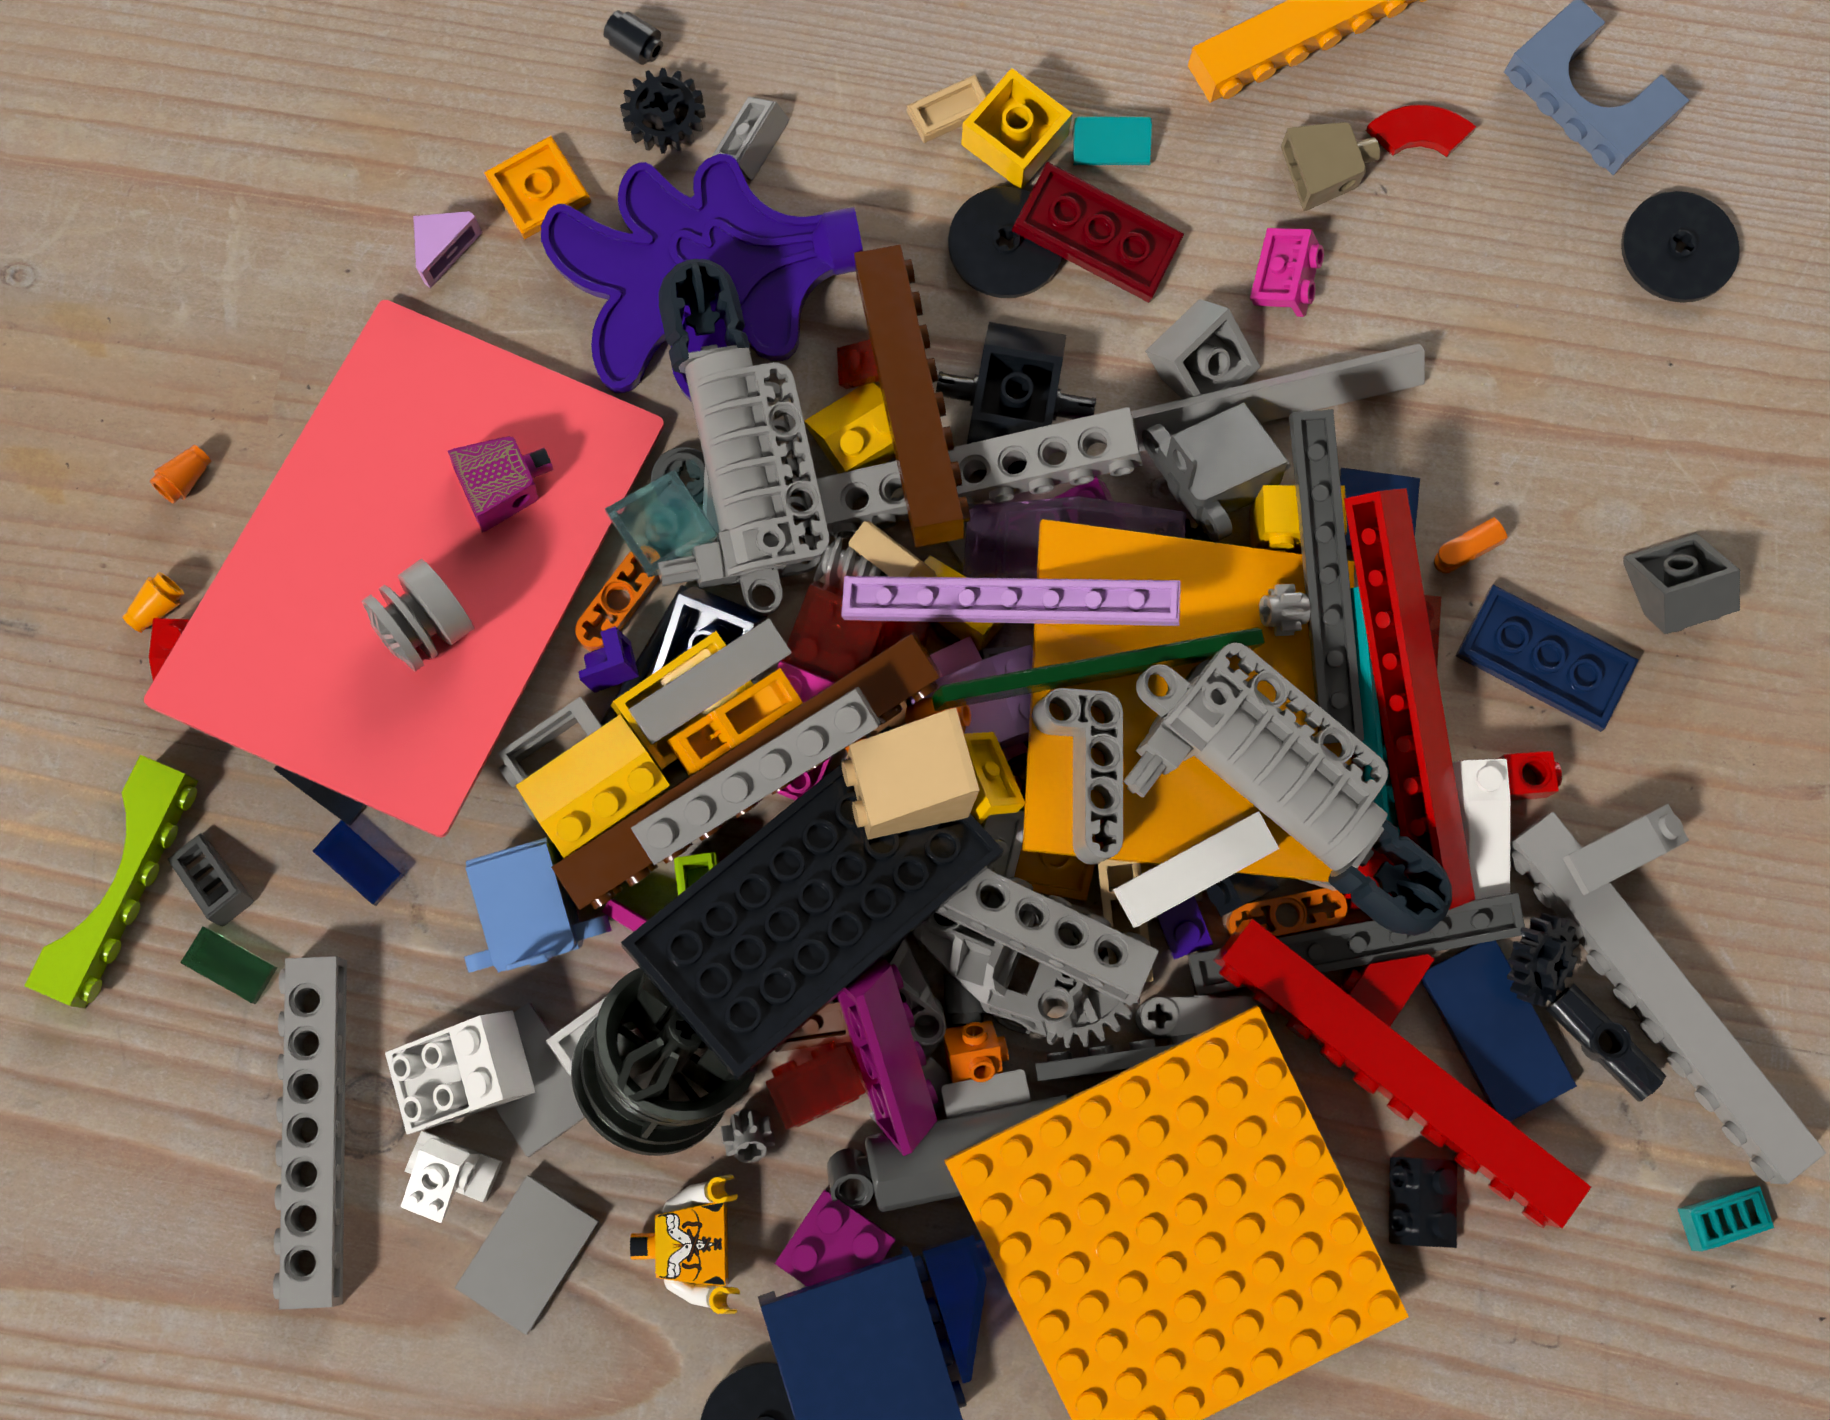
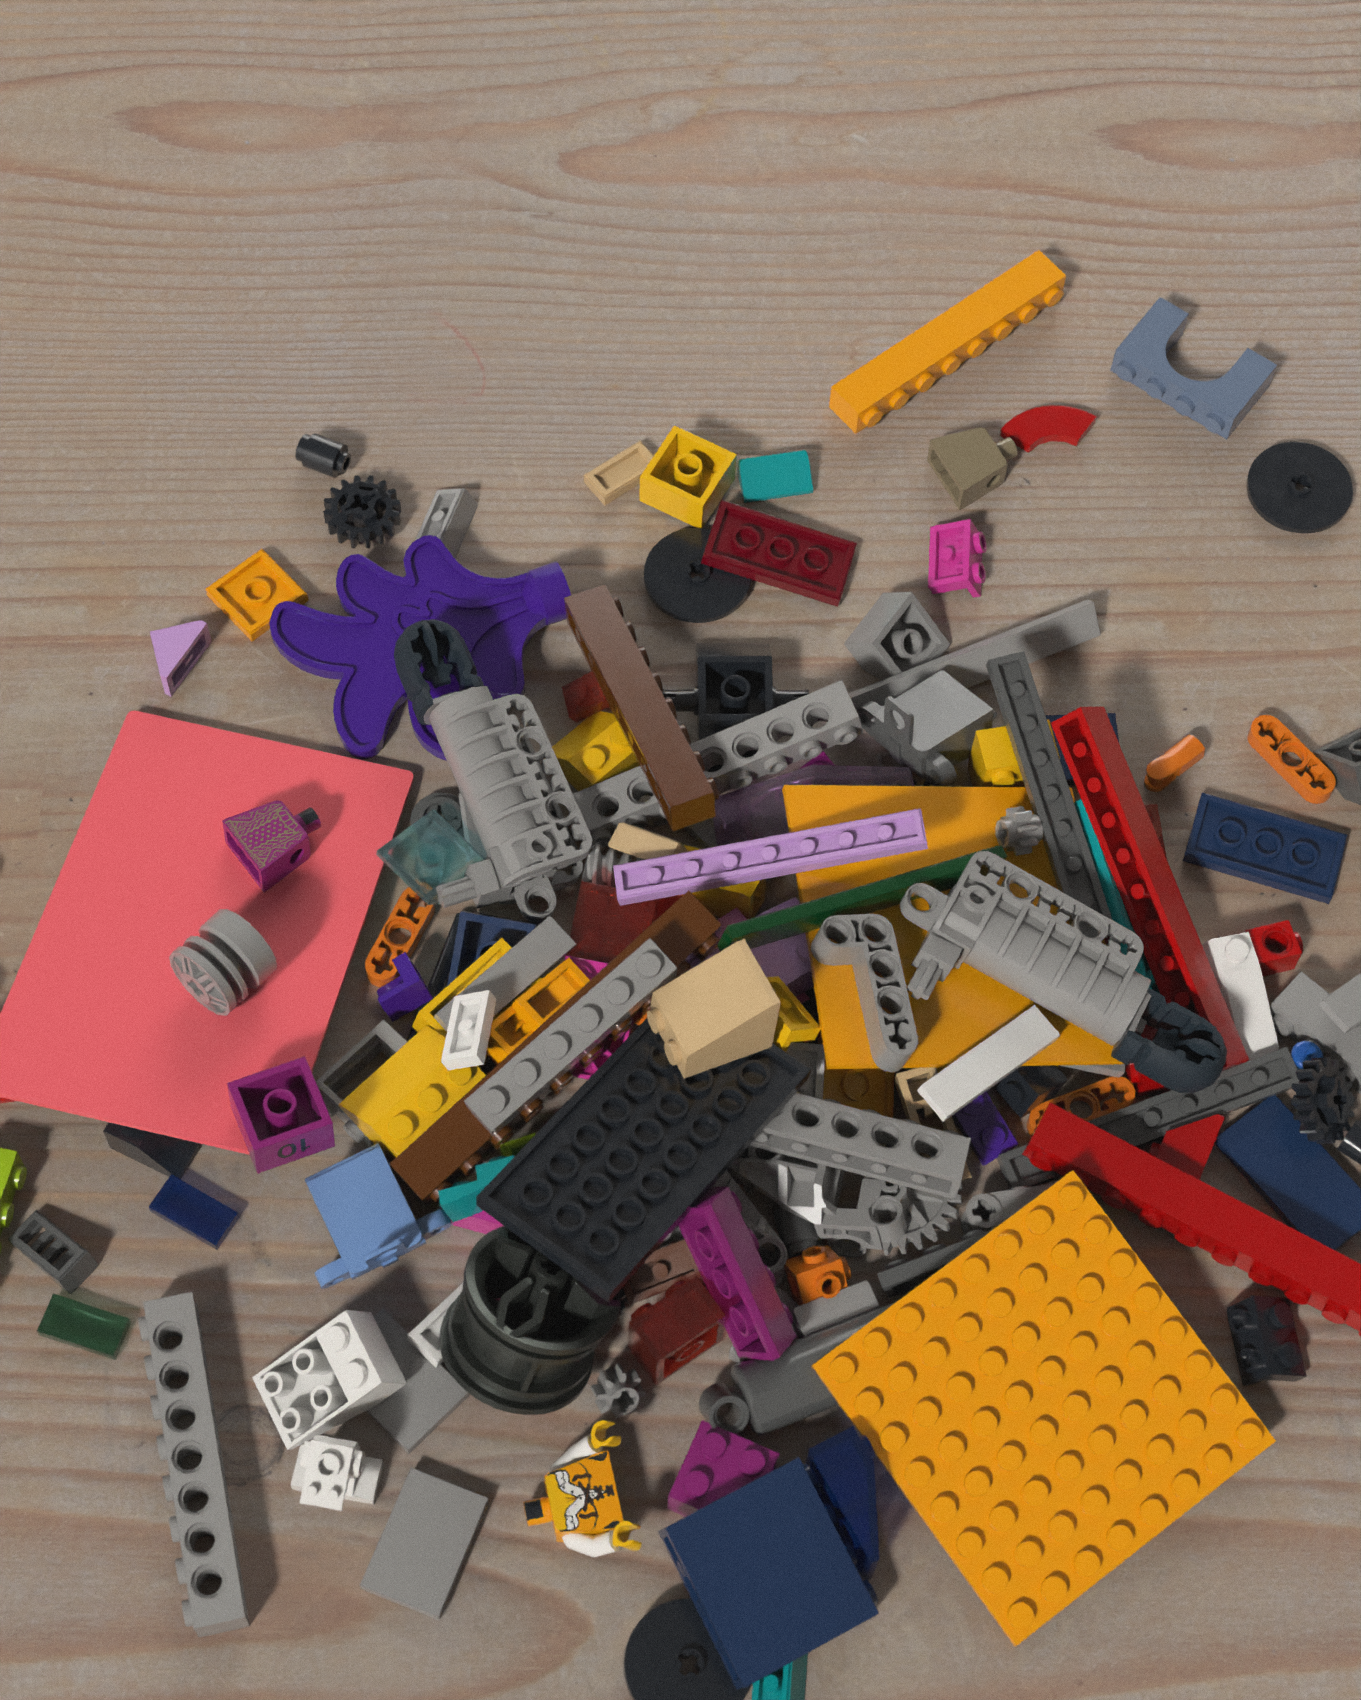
camera: 10 degrees left, 15 degrees down
(446, 797) = (281, 1114): none -> magenta brick
(632, 913) = (460, 1199): none -> teal slope
(656, 738) = (468, 1030): none -> white plate
(1536, 902) = (1304, 1051): none -> blue hair
(1623, 580) = (1317, 772): none -> orange beam

